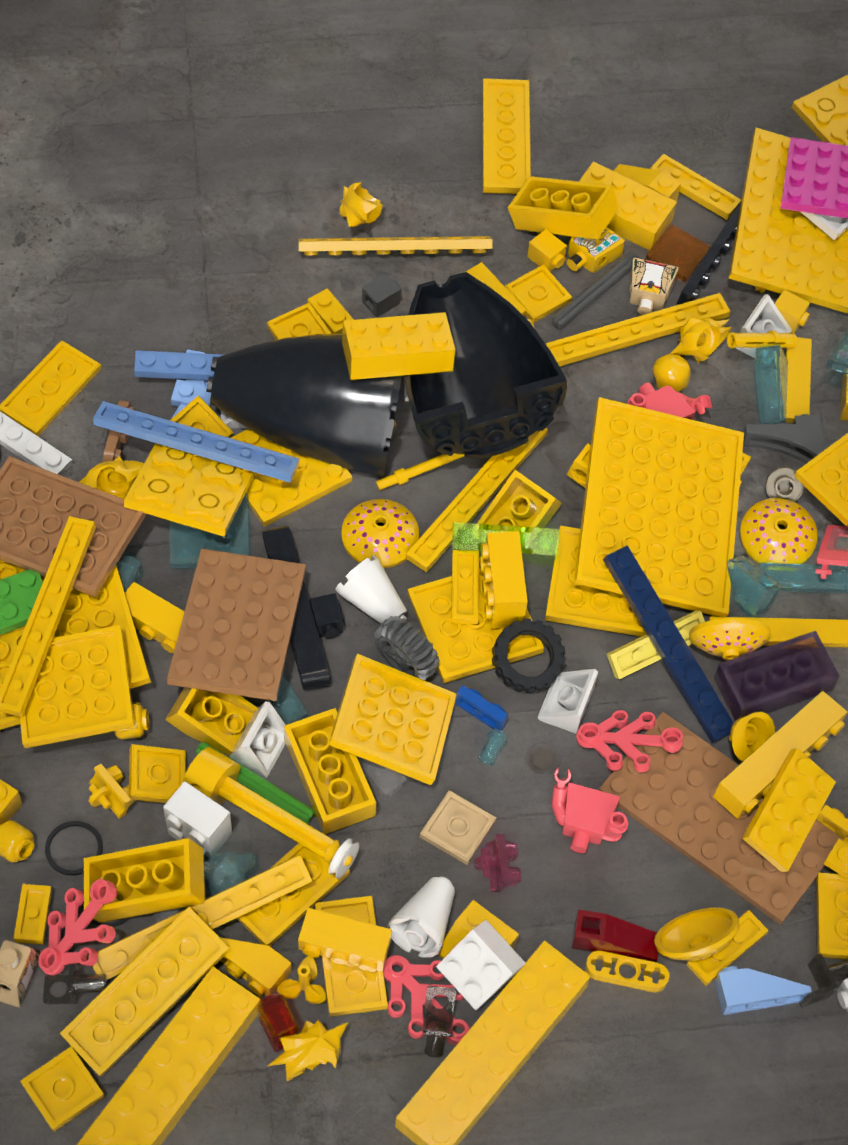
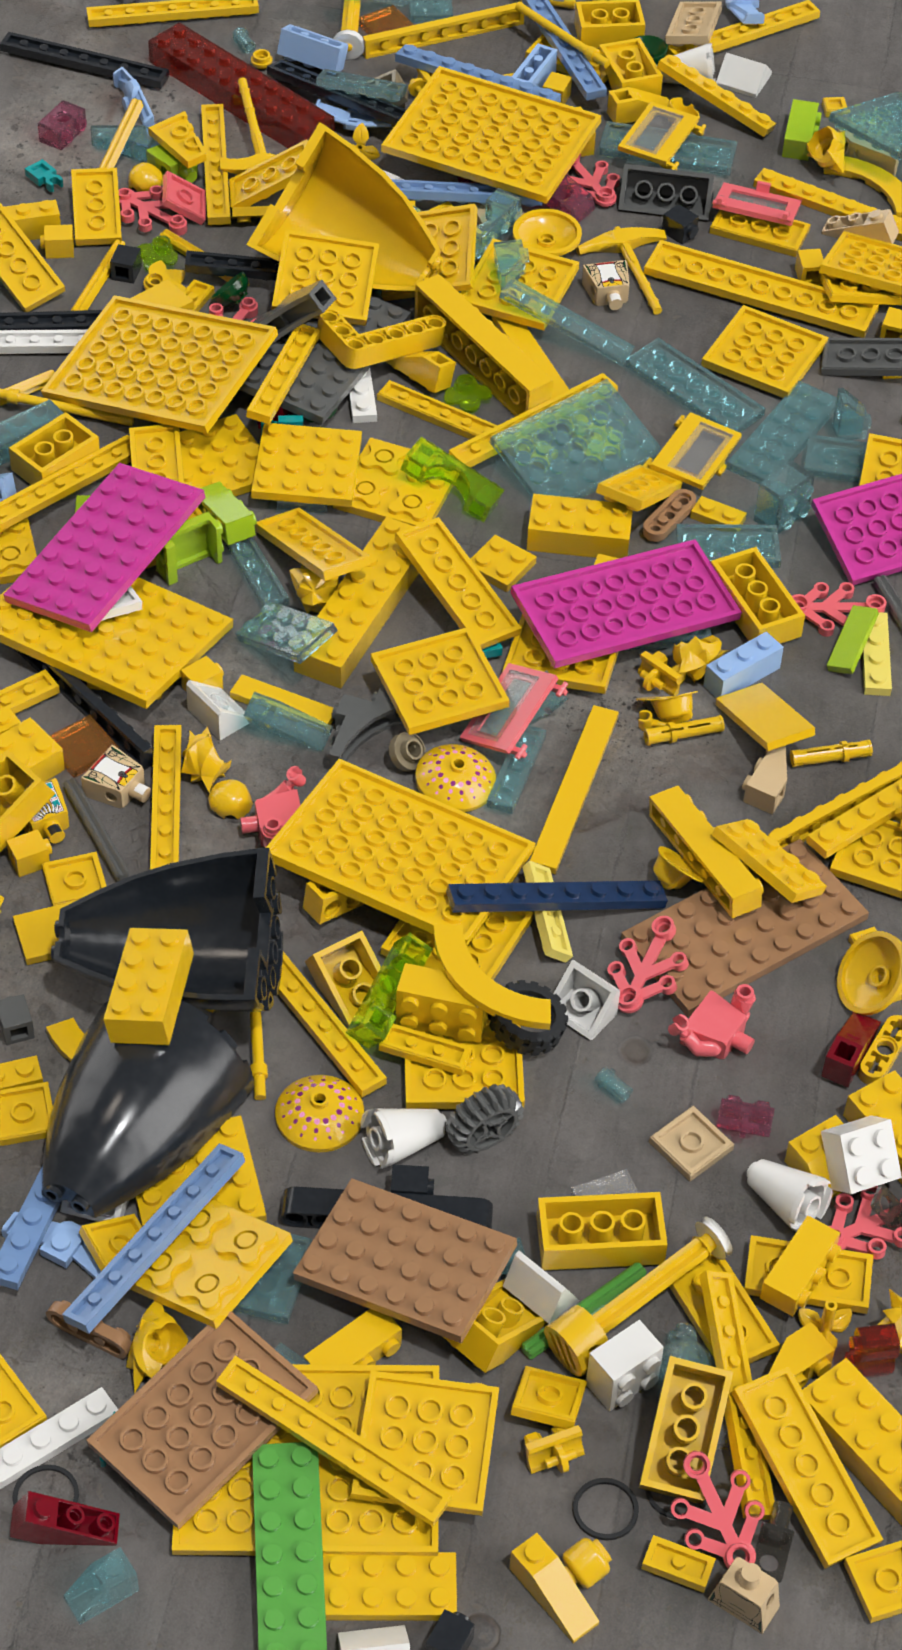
camera: 70 degrees left, 10 degrees down
(393, 719) = (564, 1152): yellow piece -> none
(474, 703) = (569, 1080): blue plate -> none
(512, 591) = (483, 990): none -> yellow tile
(730, 636) = (577, 844): yellow dish -> none
(751, 586) = (516, 812): clear light blue slope -> none
(761, 340) = (238, 703): yellow pin -> none
(776, 676) = (620, 828): clear purple brick -> none

